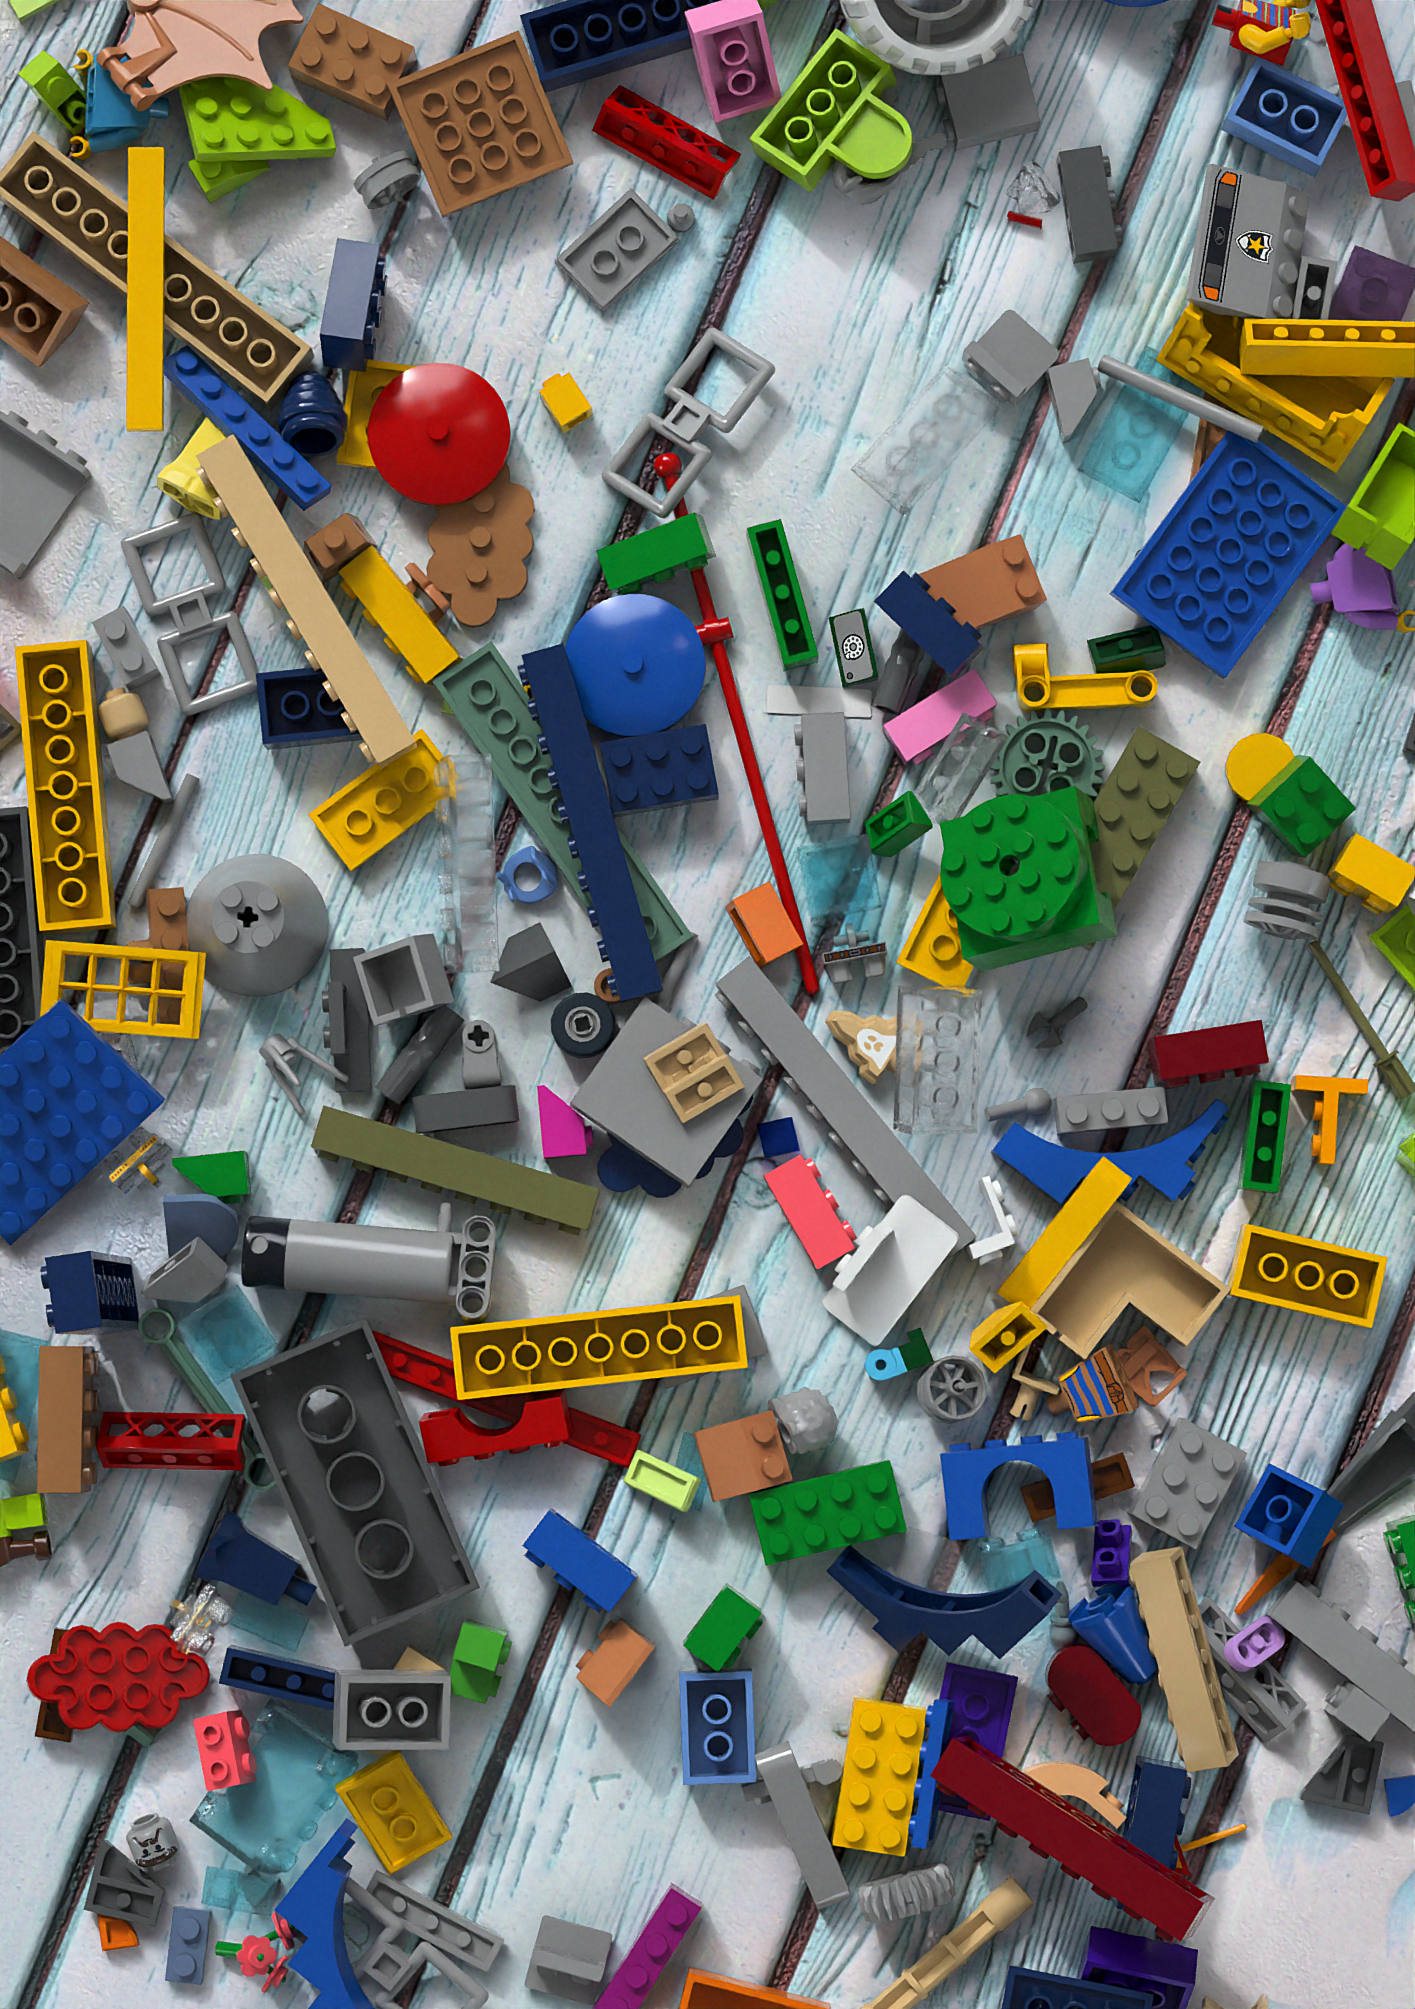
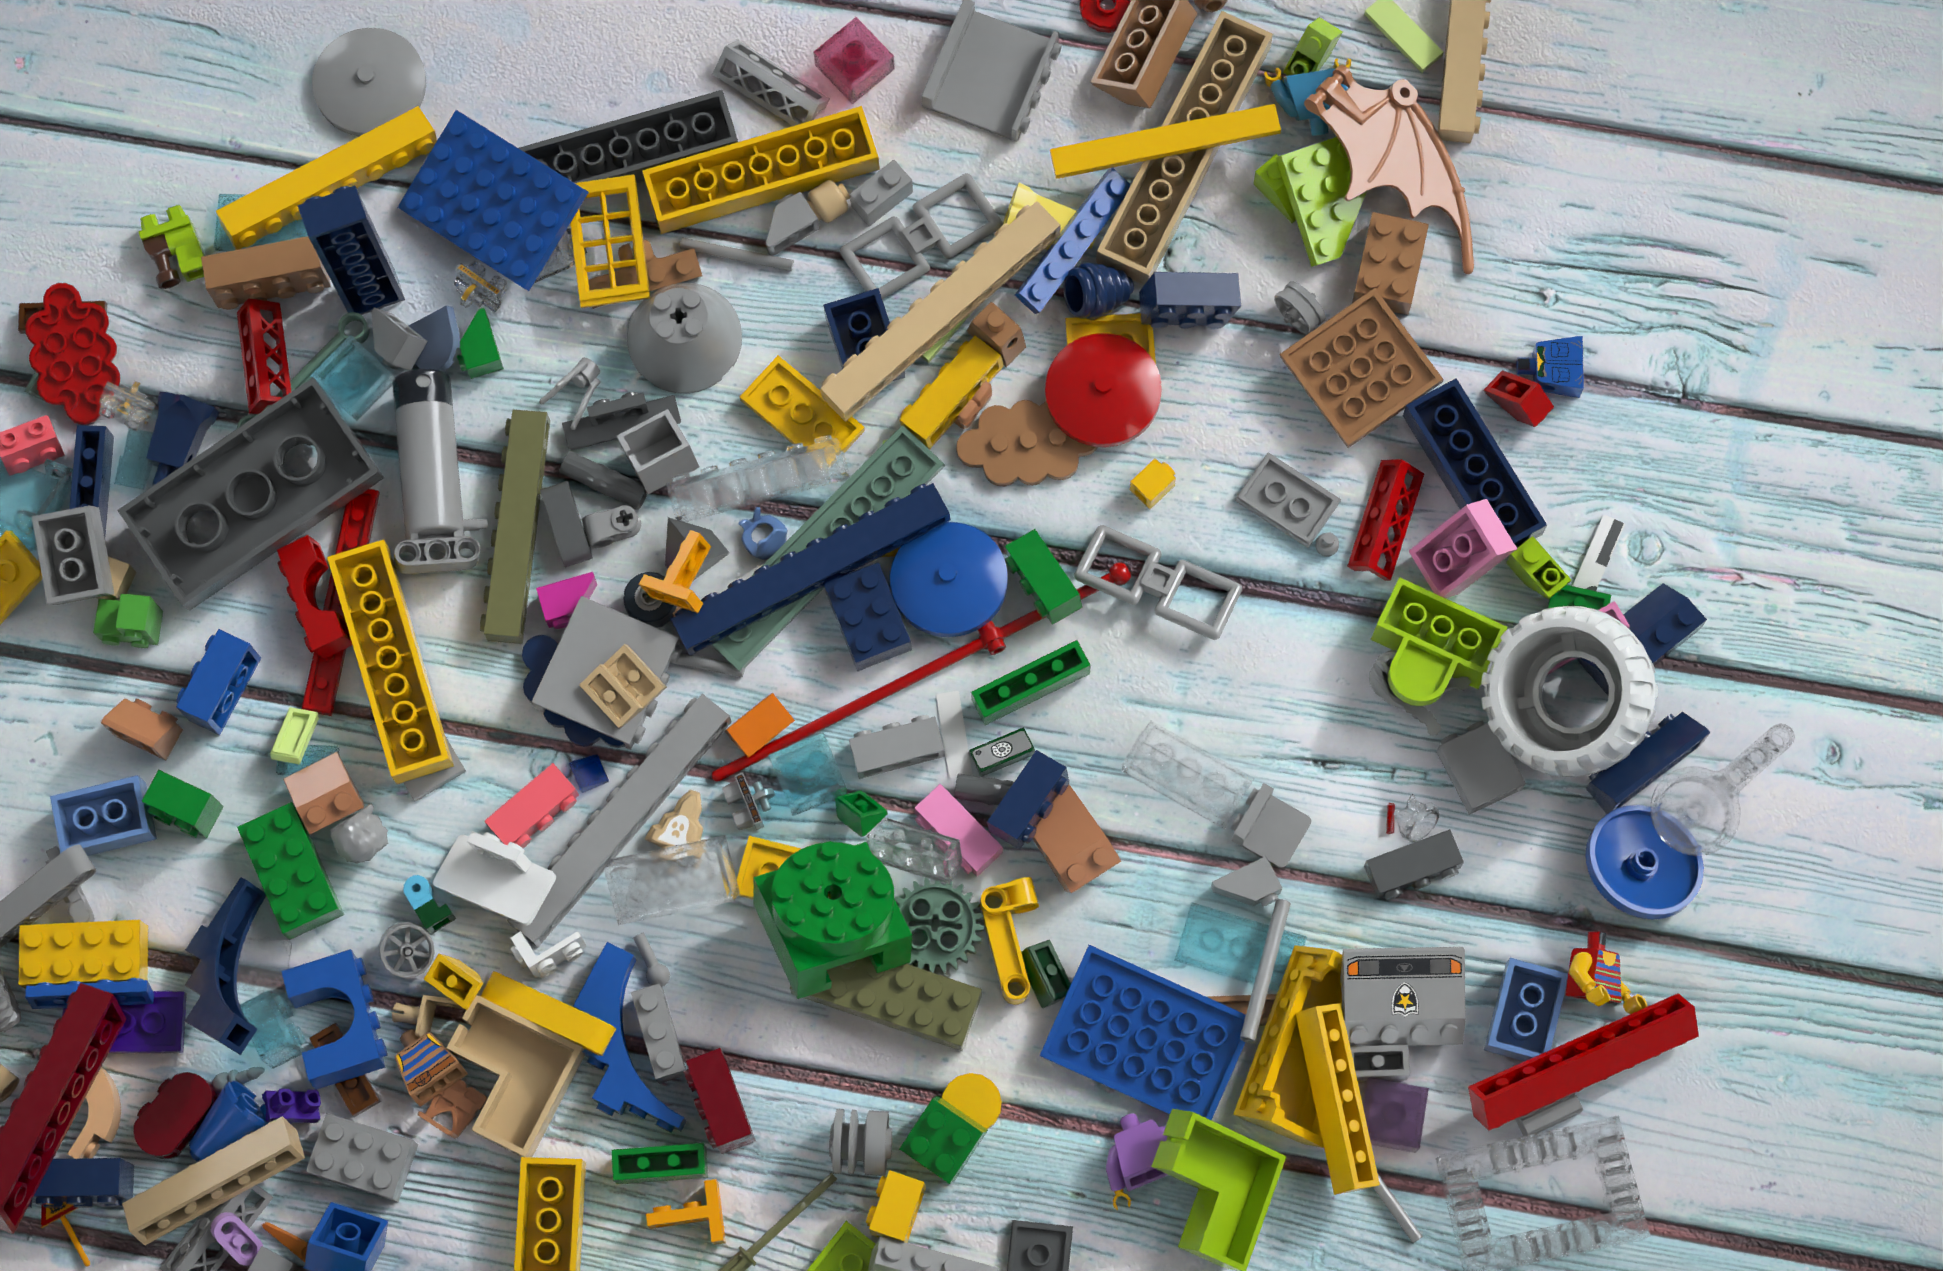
camera: 80 degrees right, 10 degrees down
(571, 978) = (680, 575): none -> light orange bracket
(1056, 1022) = (725, 977): dark grey bar -> none

